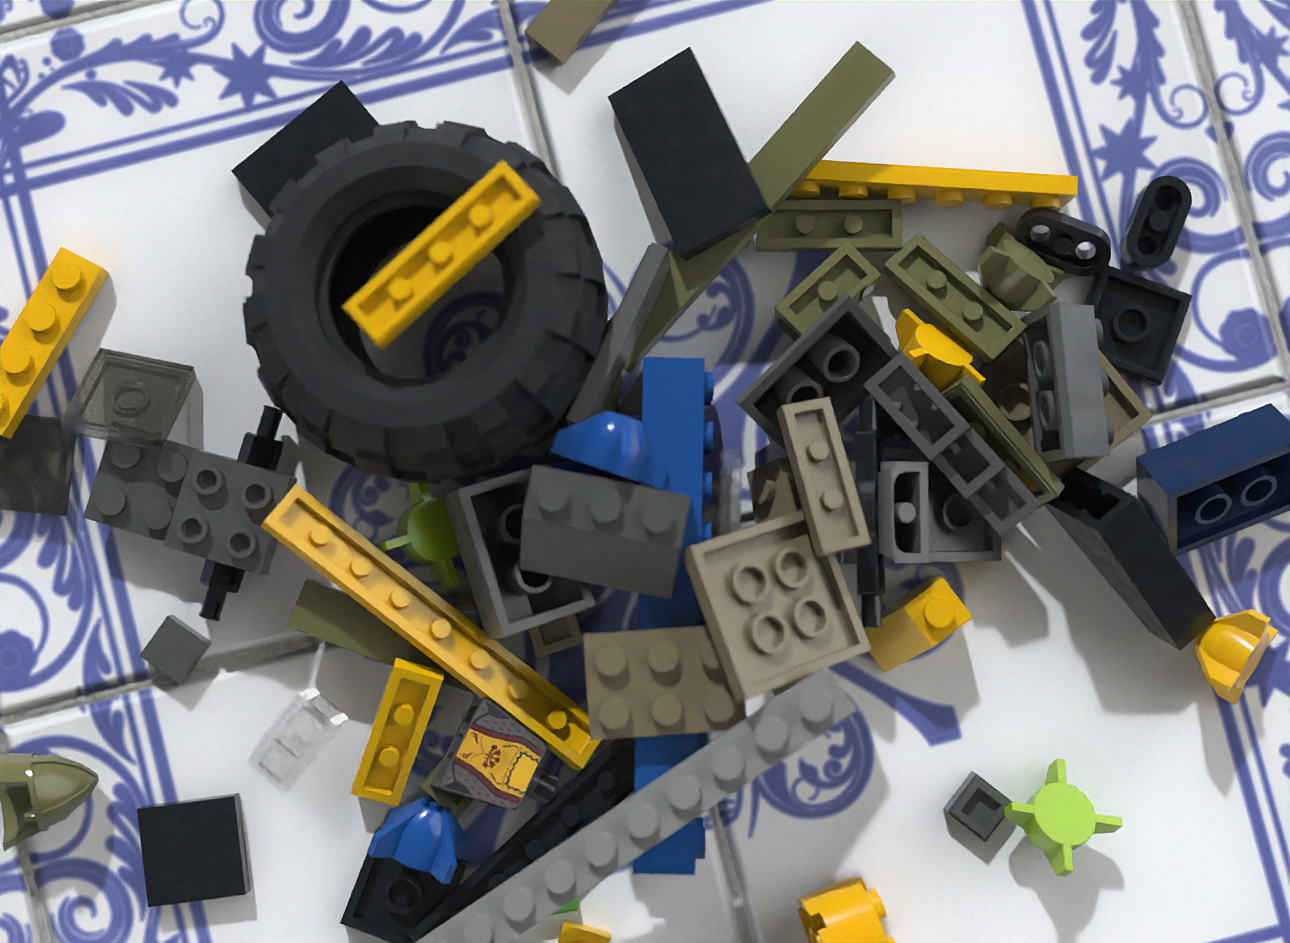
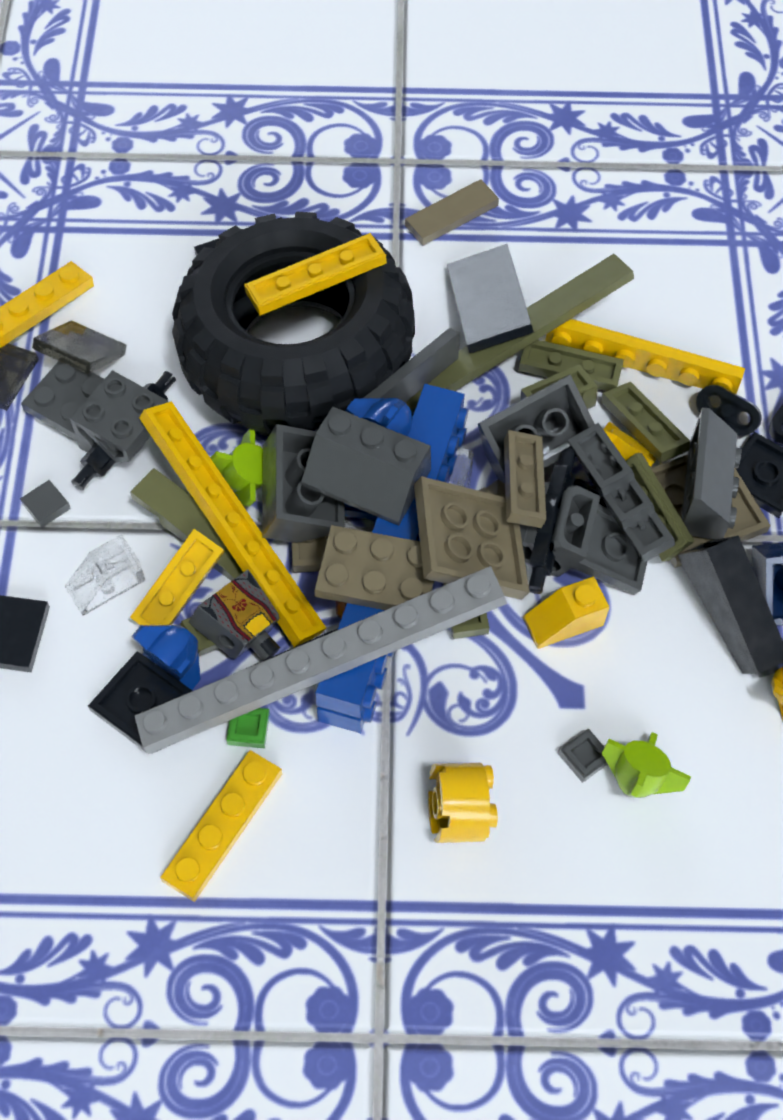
camera: 15 degrees right, 25 degrees down
(1016, 273) = (682, 410): olive piece -> none

